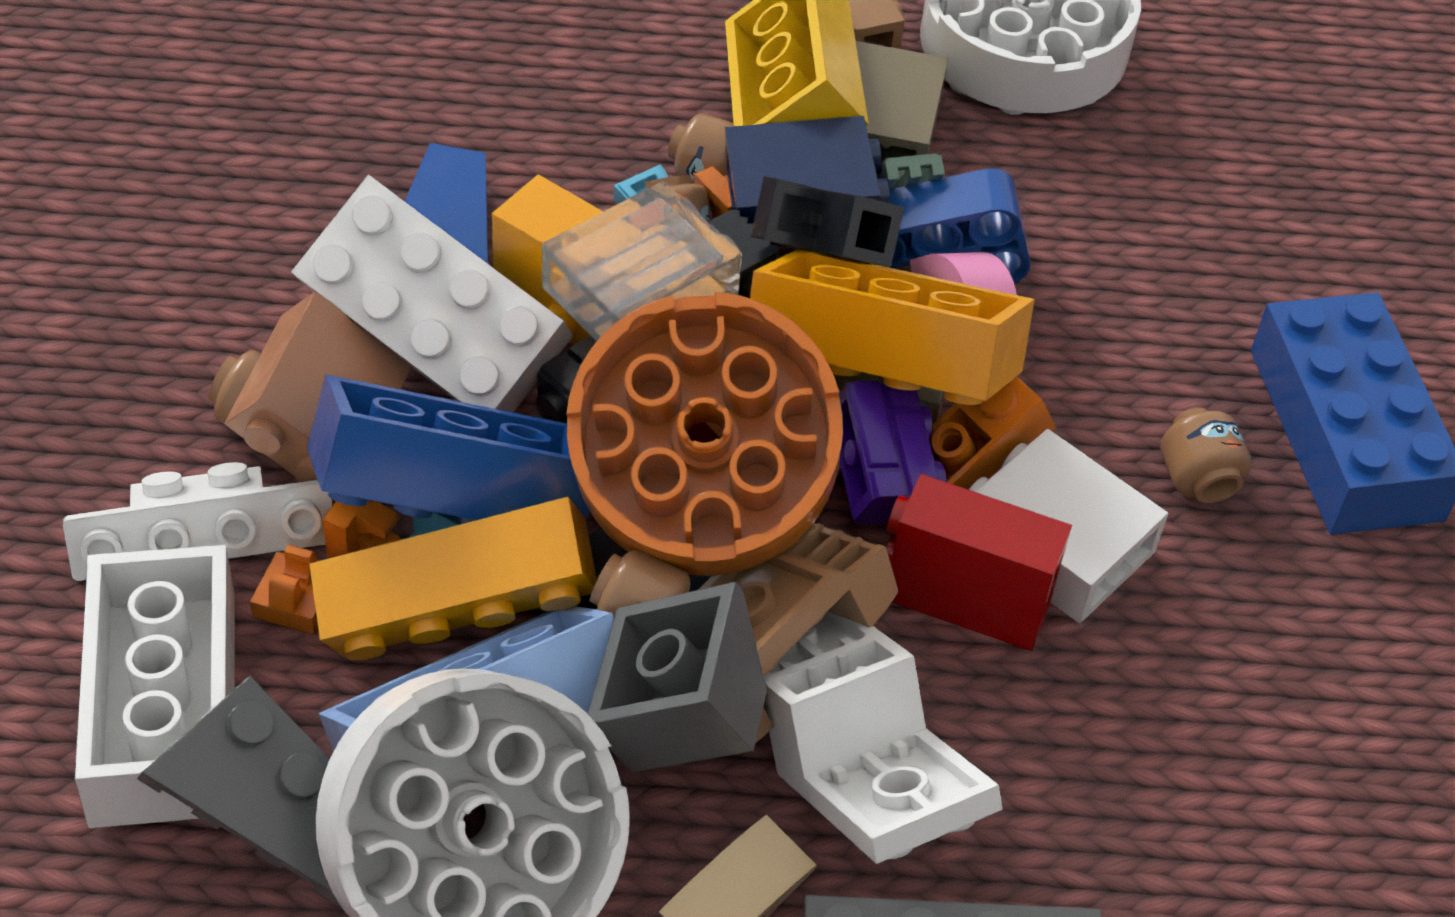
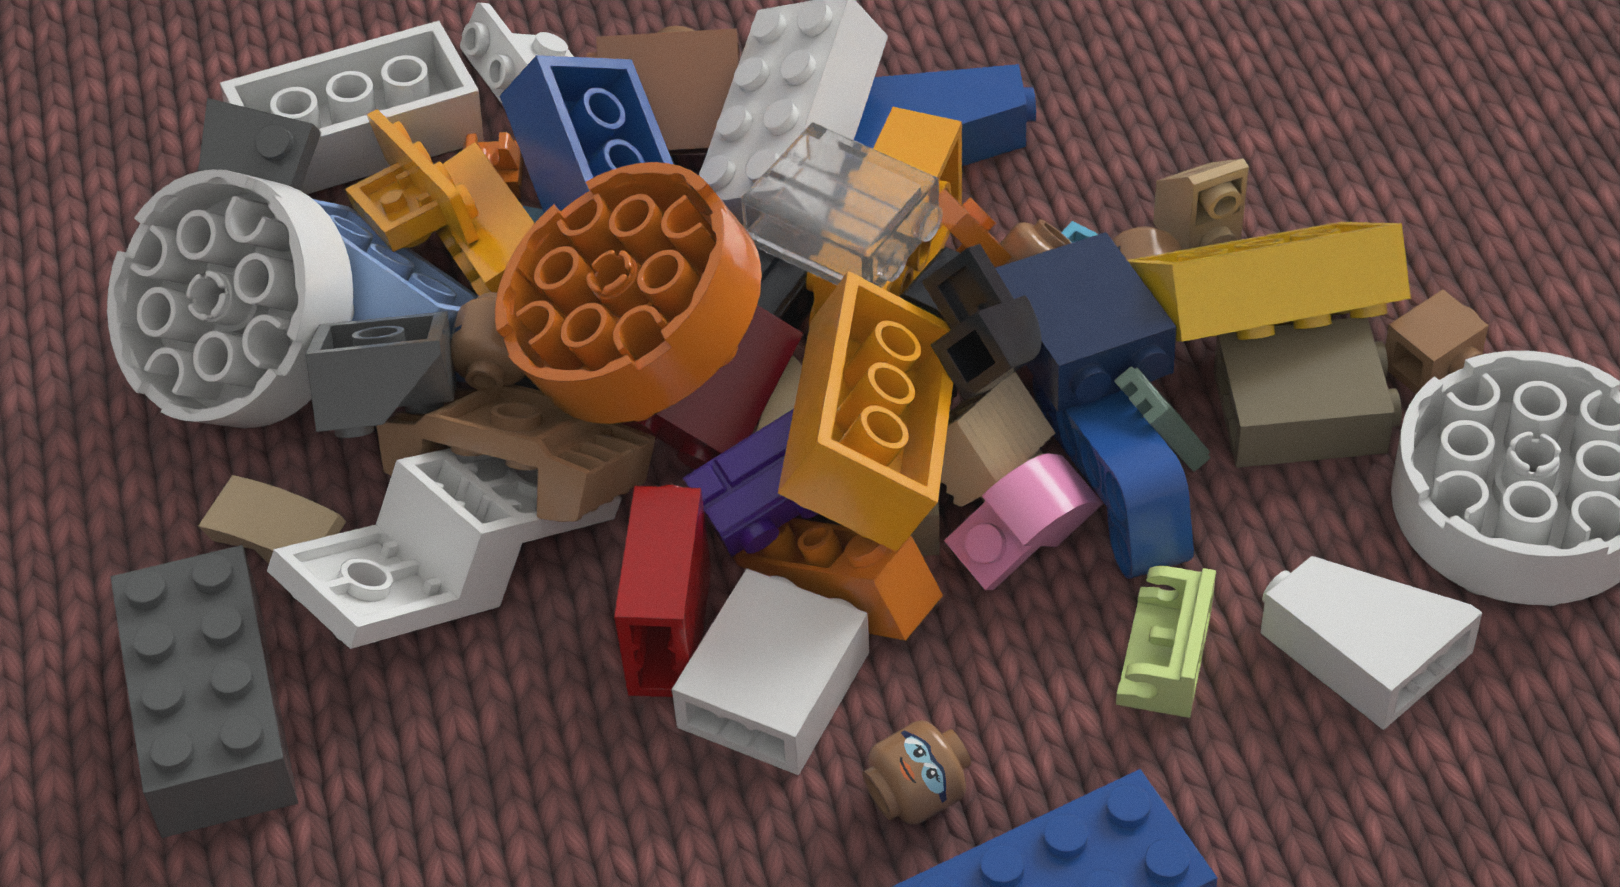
camera: 80 degrees right, 0 degrees up
(369, 631) = (412, 193): none -> light orange bracket
(661, 88) = (1203, 203): none -> tan slope
(1107, 267) = (1167, 641): none -> yellowish green hinge
(1142, 159) = (1367, 634): none -> white slope

